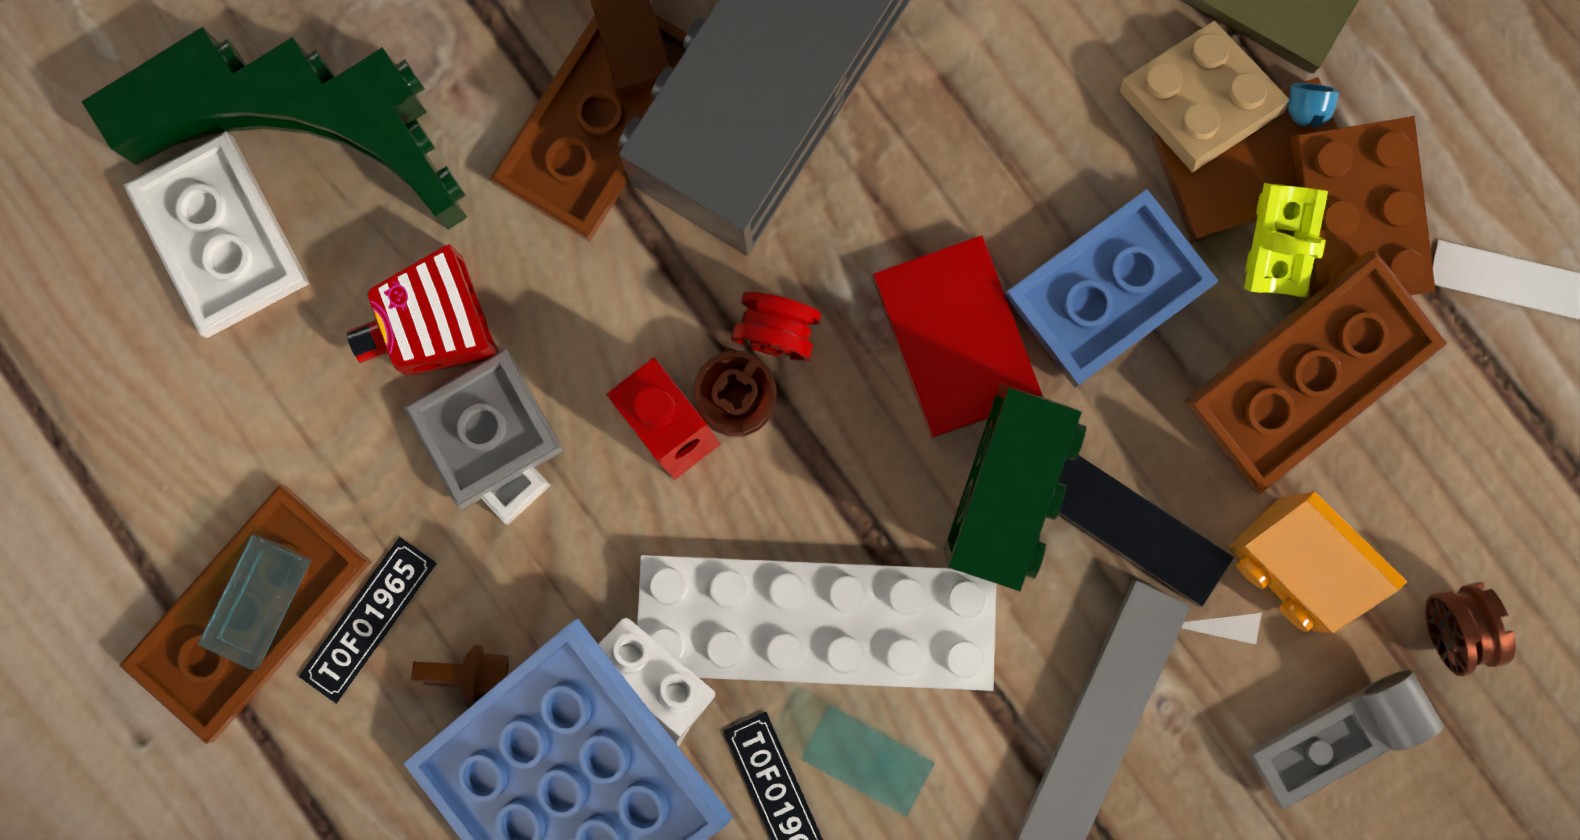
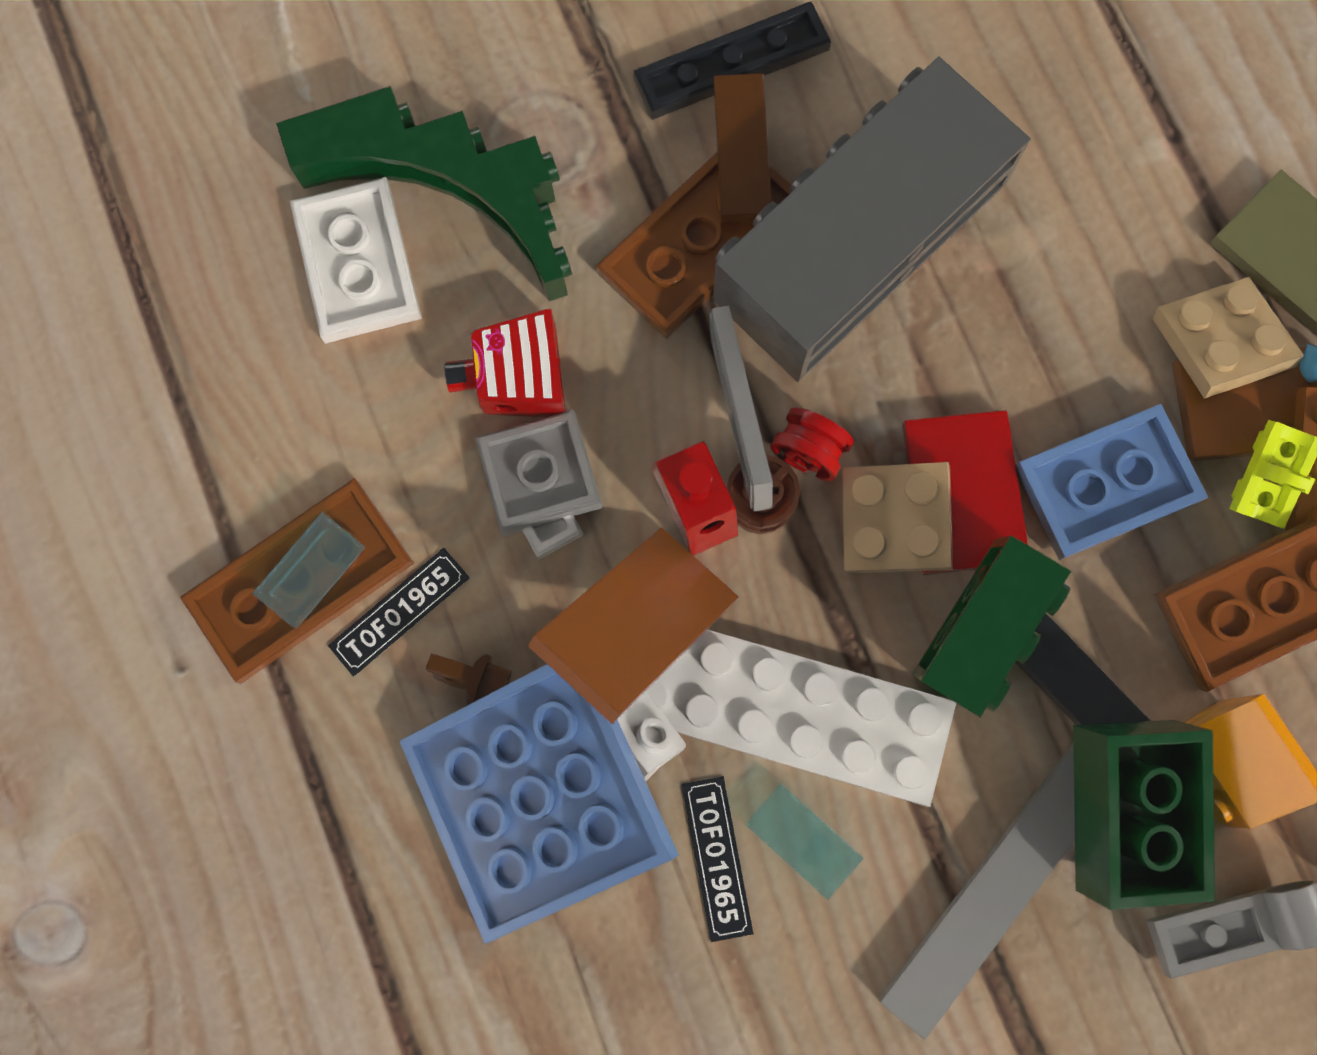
camera: 15 degrees right, 5 degrees down
(625, 578) = (633, 624): none -> dark orange tile
(687, 308) = (741, 410): none -> light grey tile
(888, 385) = (897, 518): none -> tan plate
(1217, 645) = (1144, 813): none -> dark green brick

